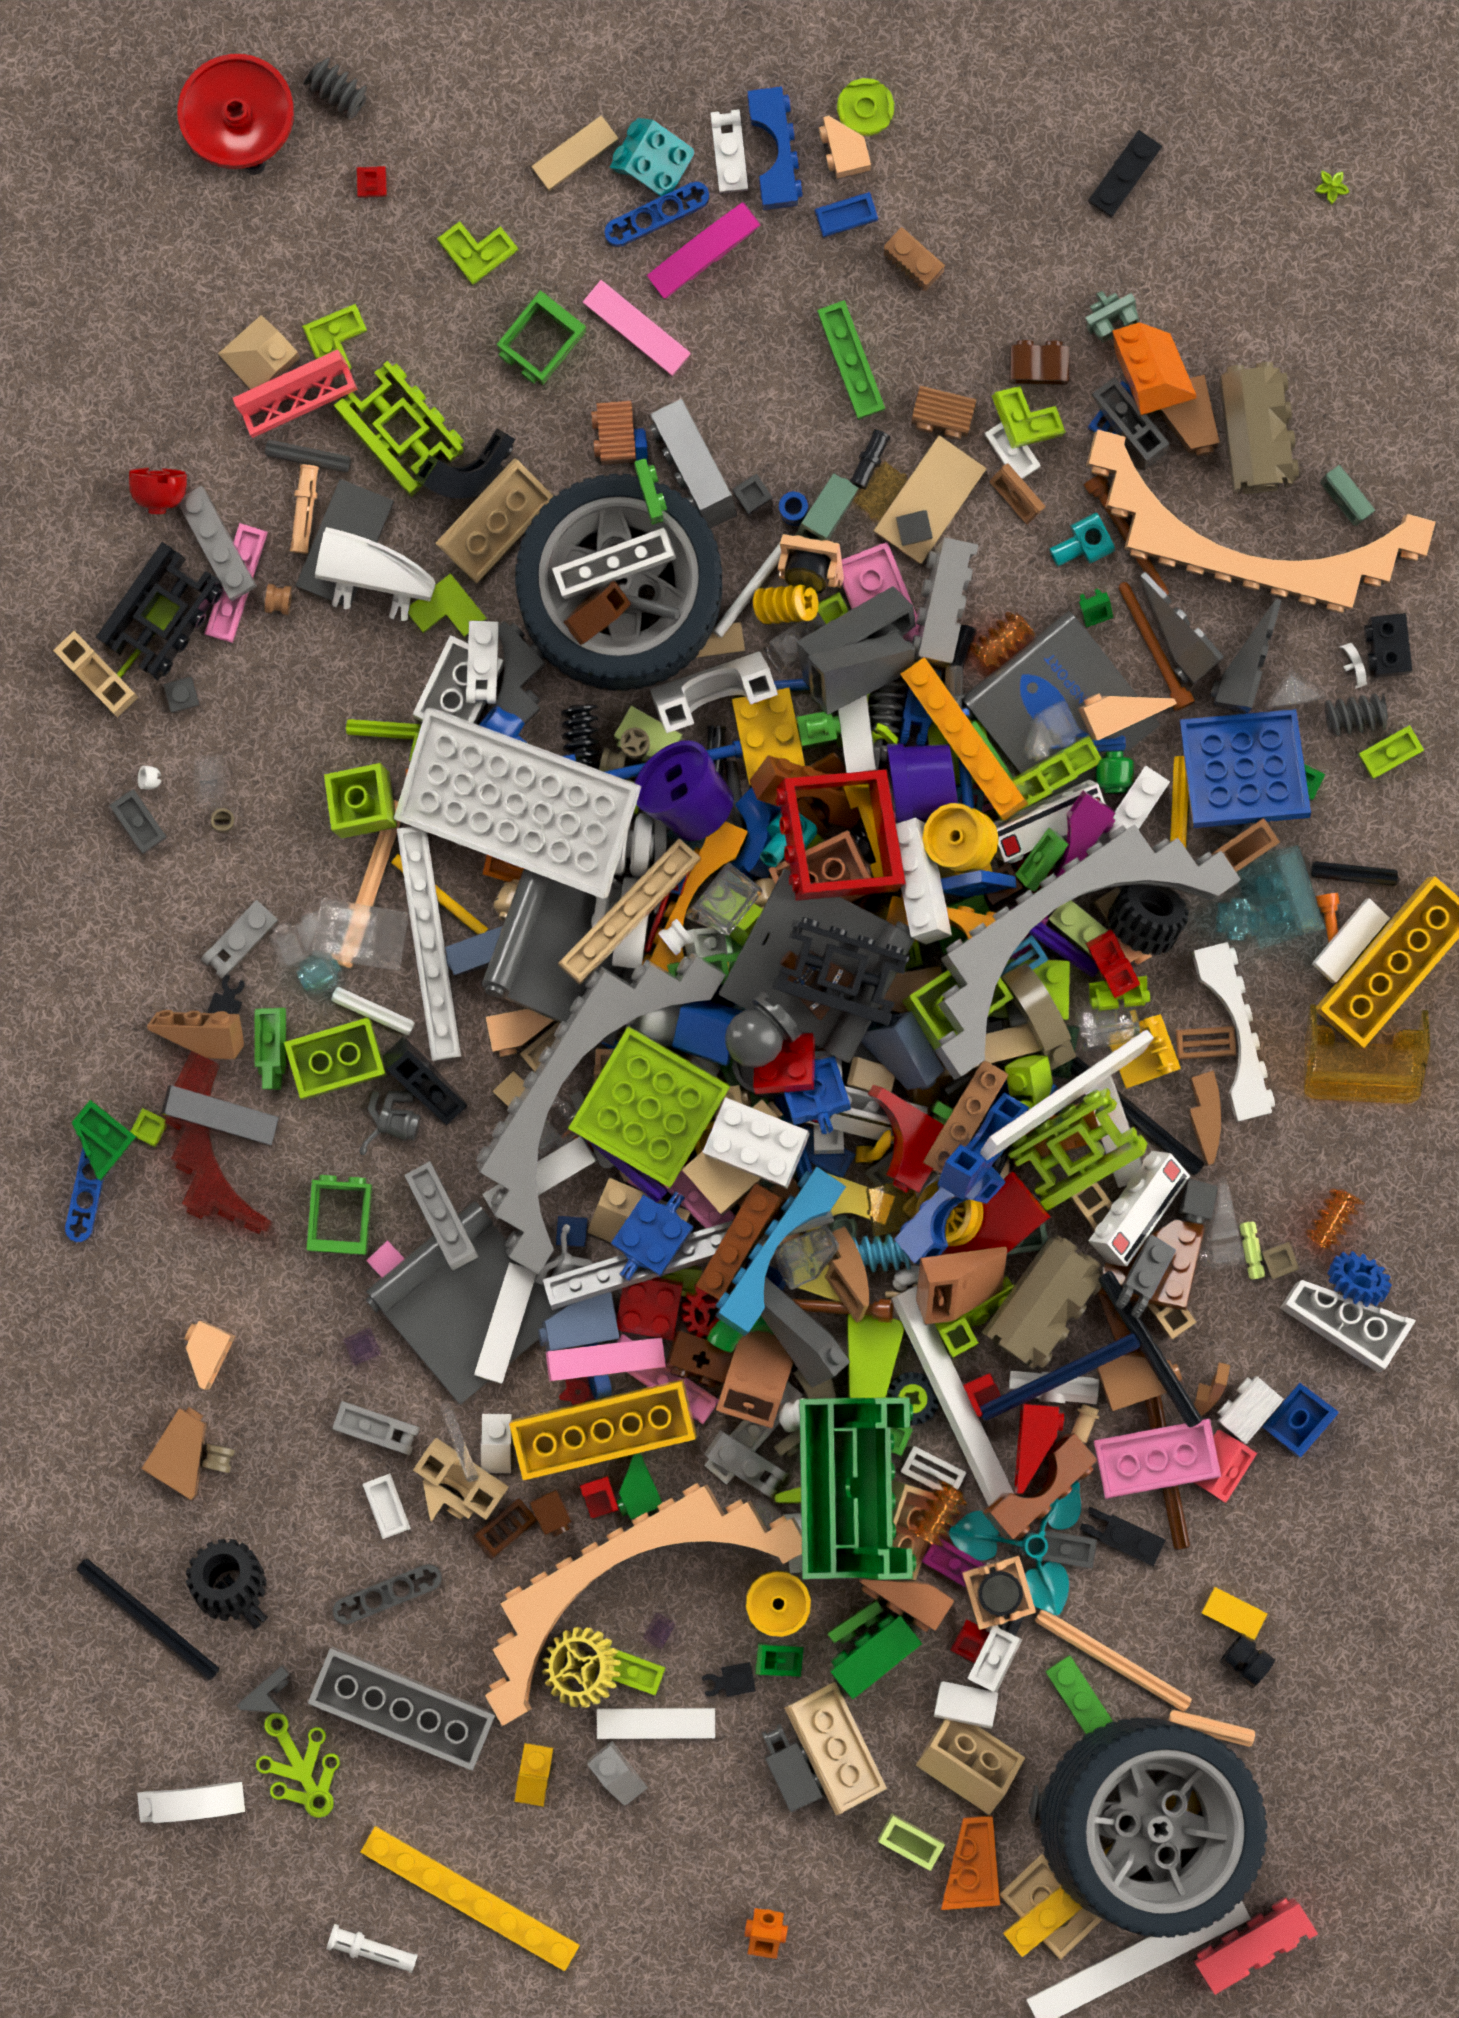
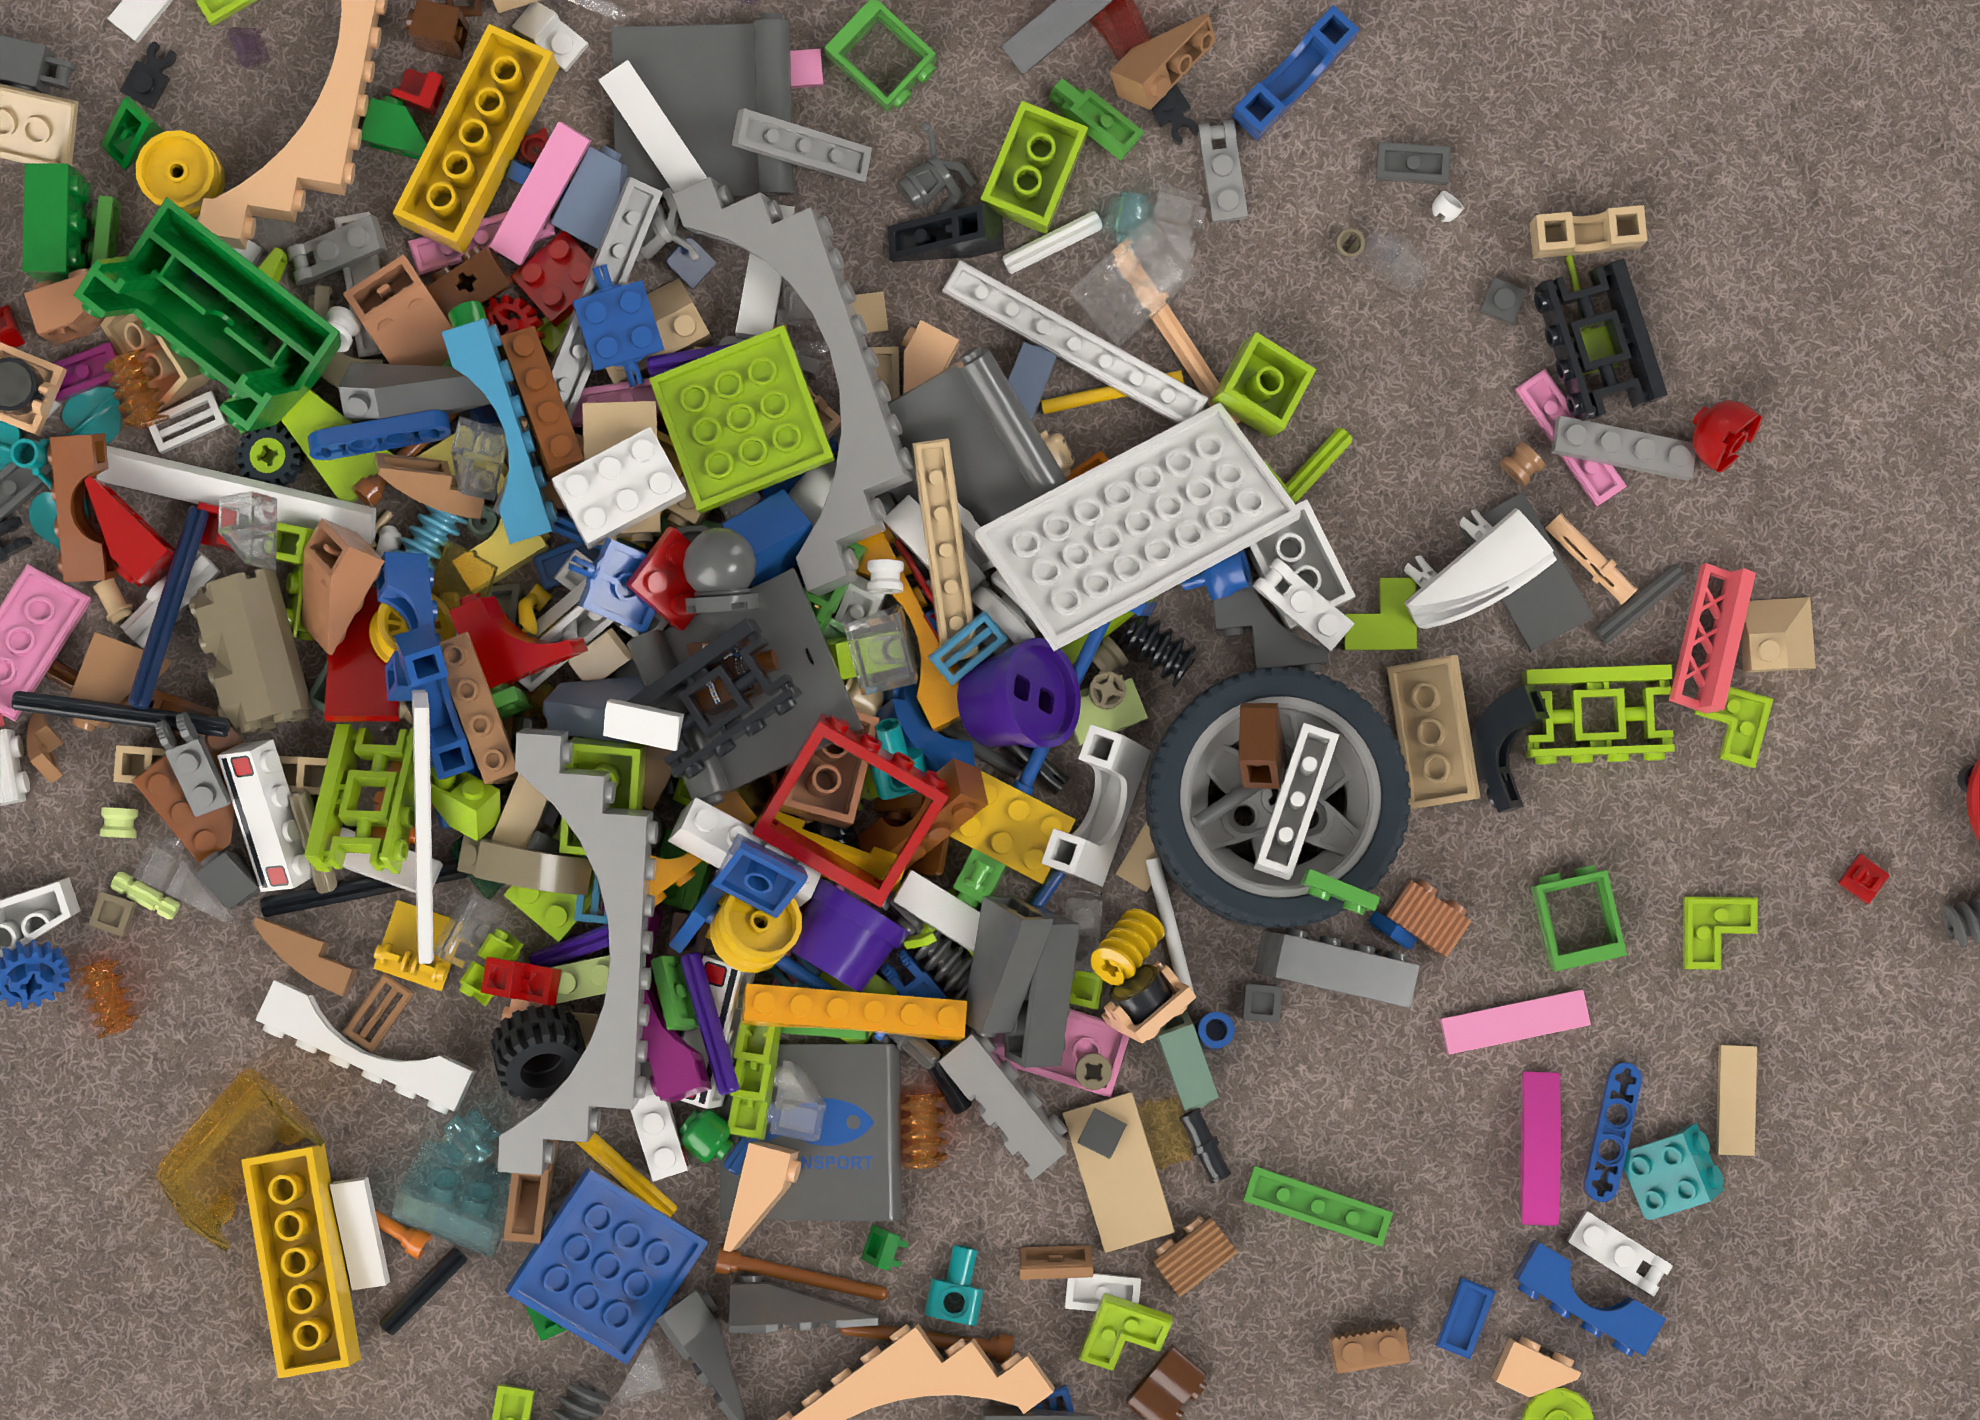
camera: 130 degrees right, 0 degrees up
(140, 941) = (1296, 74): none -> blue arch
(679, 859) = (960, 635): none -> dark azure tile
(843, 1331) = (379, 435): none -> blue beam
(879, 570) = (1089, 1067): none -> dark tan wheel
(892, 1001) = (642, 724): none -> white slope
(927, 856) = (759, 876): none -> blue slope
(967, 1365) = (250, 527): none -> clear slope
(1043, 823) = (709, 1023): none -> dark purple axle
(1127, 1173) = (303, 812): none -> dark tan axle
(1220, 1303) = (118, 822): none -> yellowish green wheel

